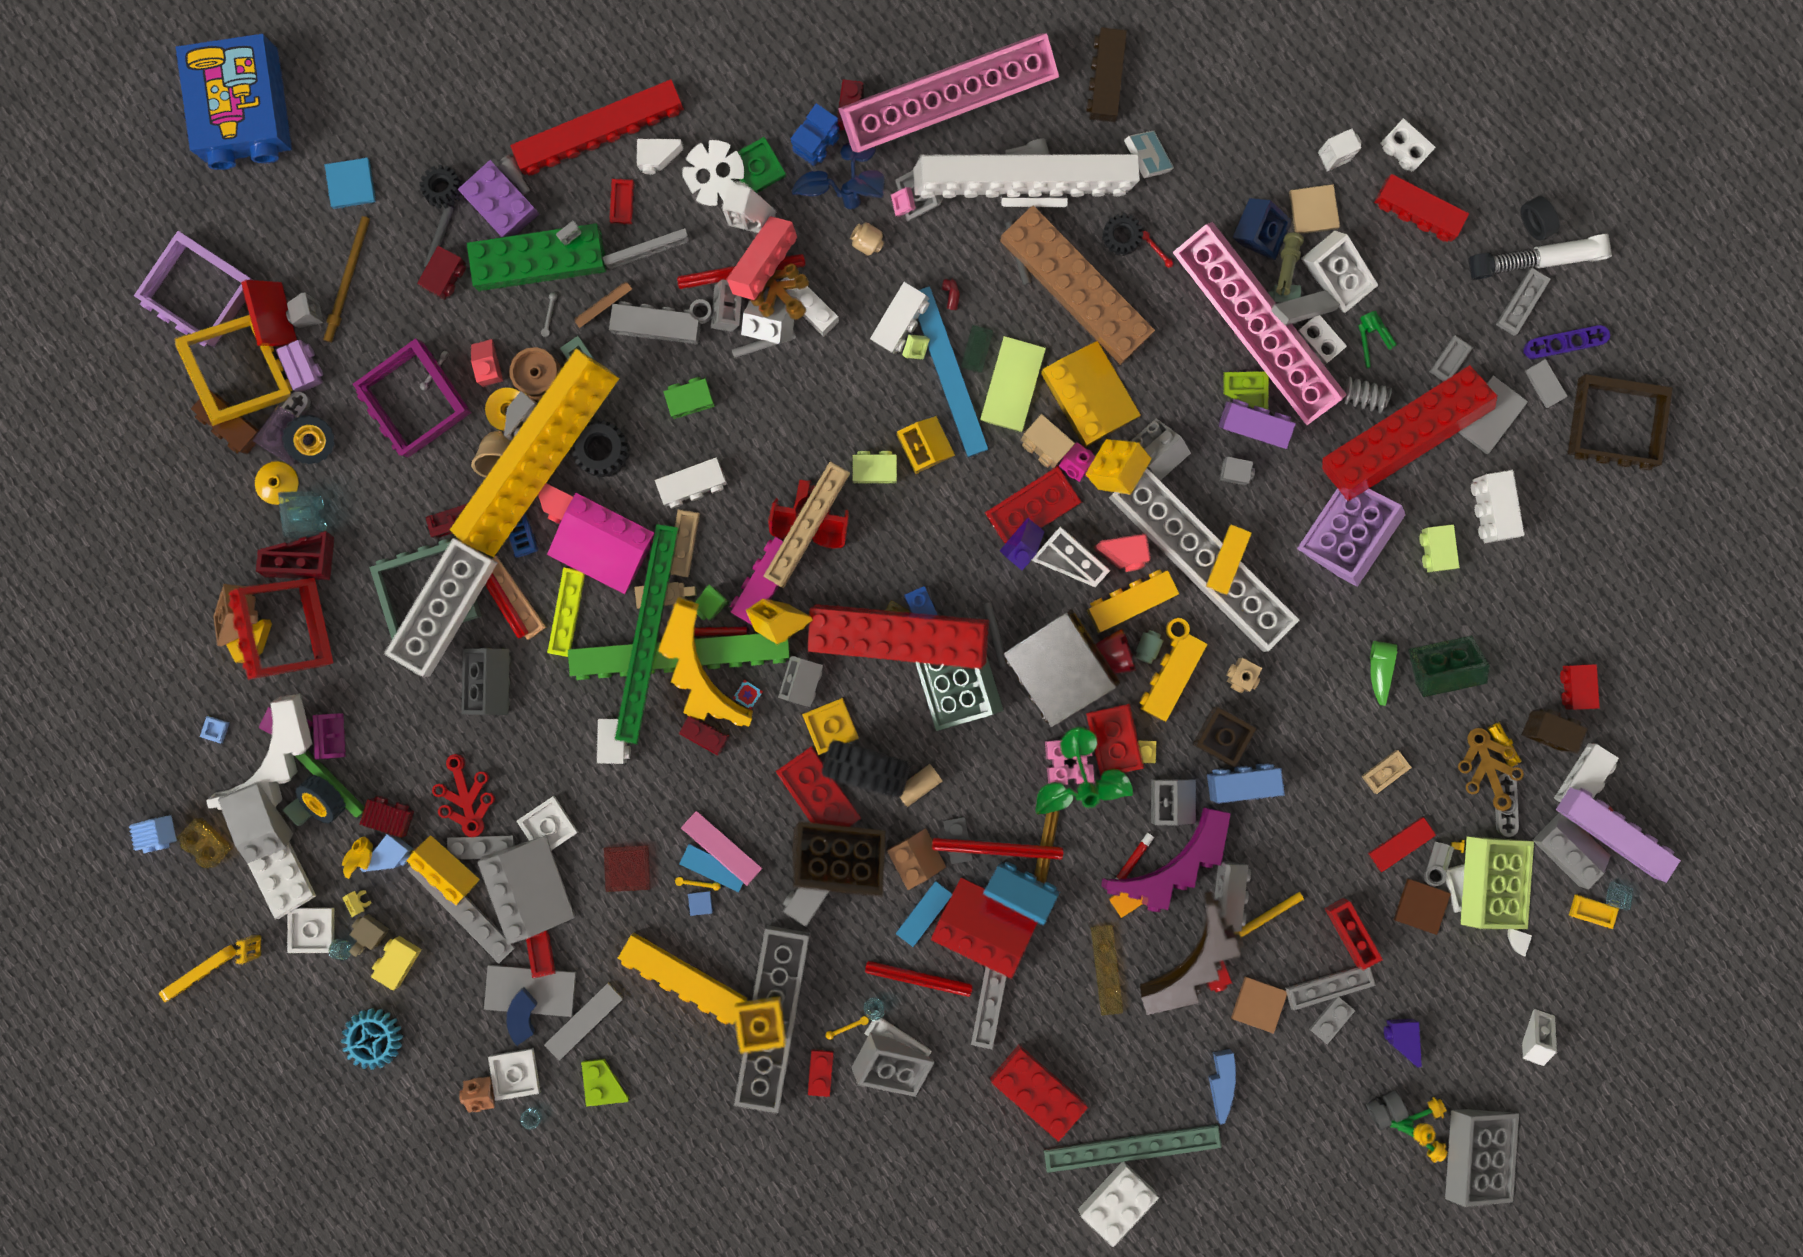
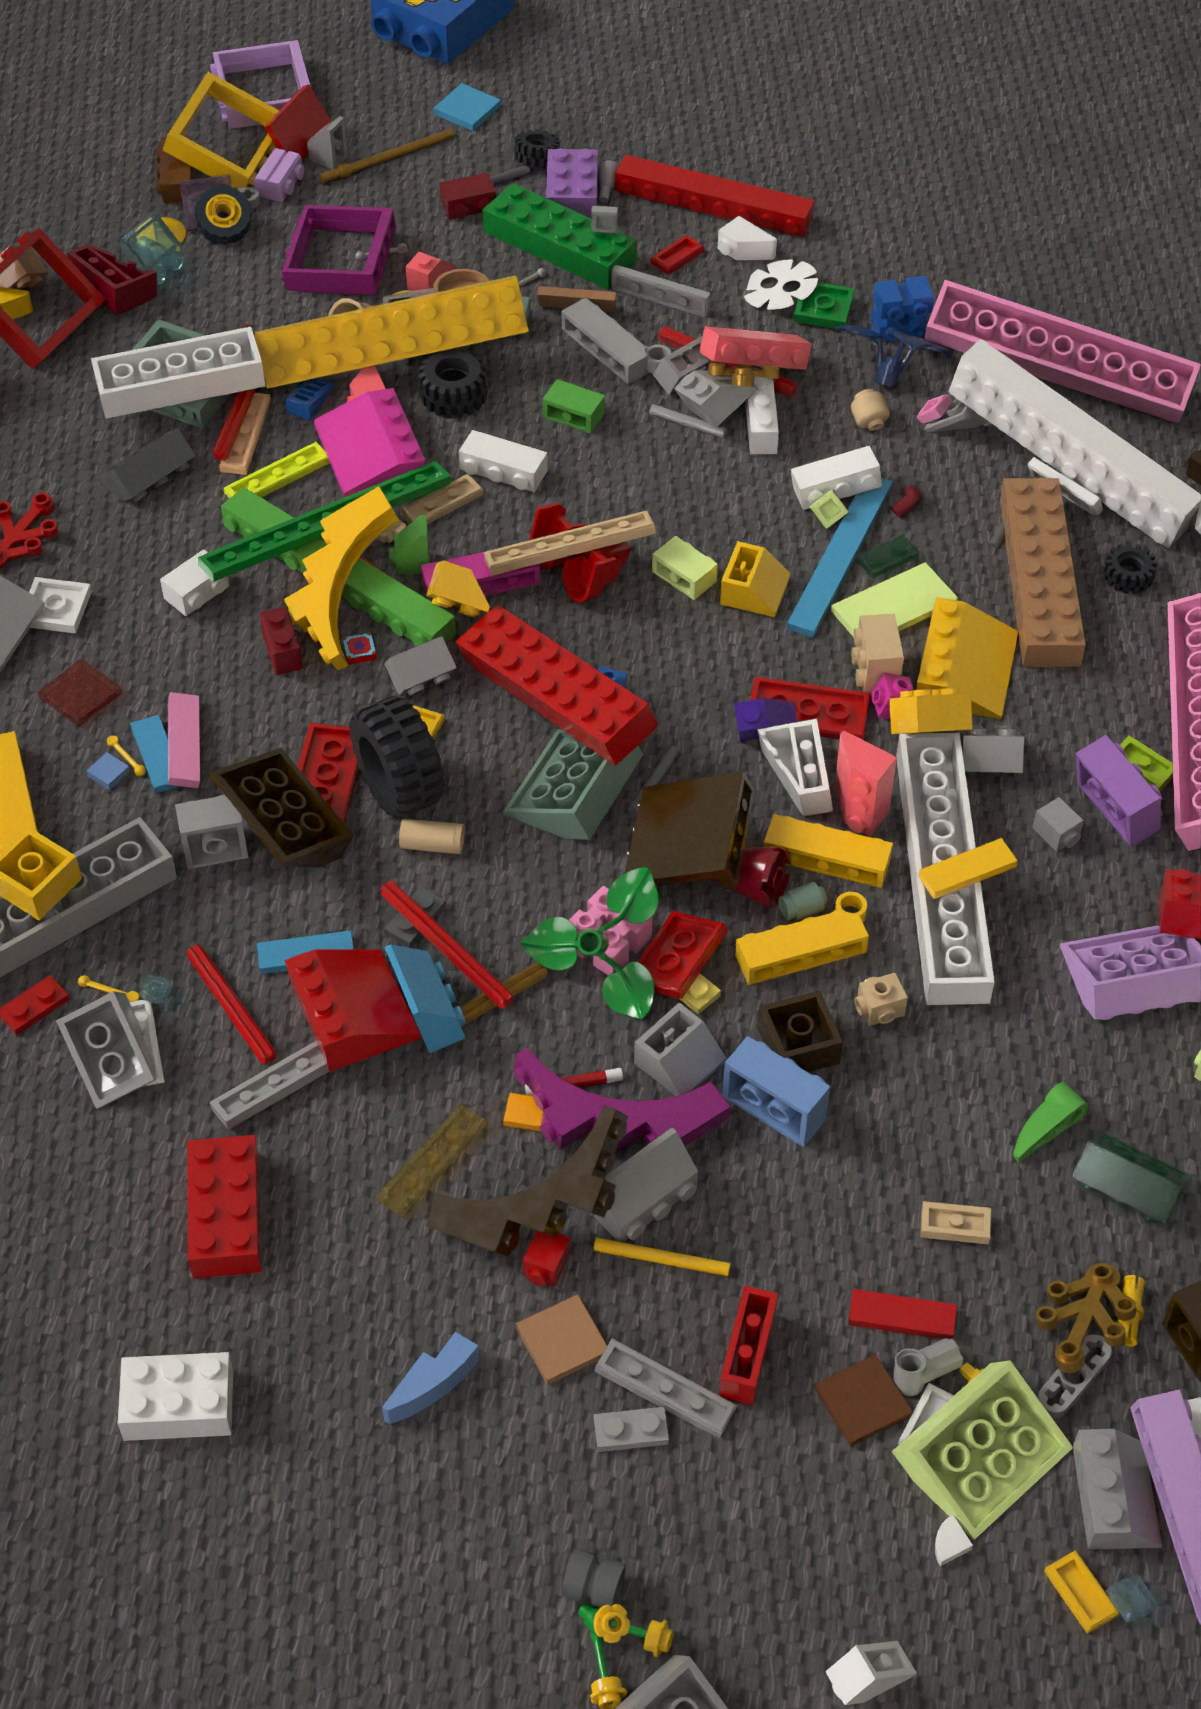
camera: 45 degrees right, 35 degrees down
(745, 208) = (778, 300): white wedge -> none
(916, 859) = (352, 893): medium nougat slope -> none
(1132, 1148) = (260, 1364): sand green tile -> none
(1168, 262) = (1154, 589): red hinge -> none
(1405, 1037) = (698, 1519): dark purple slope -> none

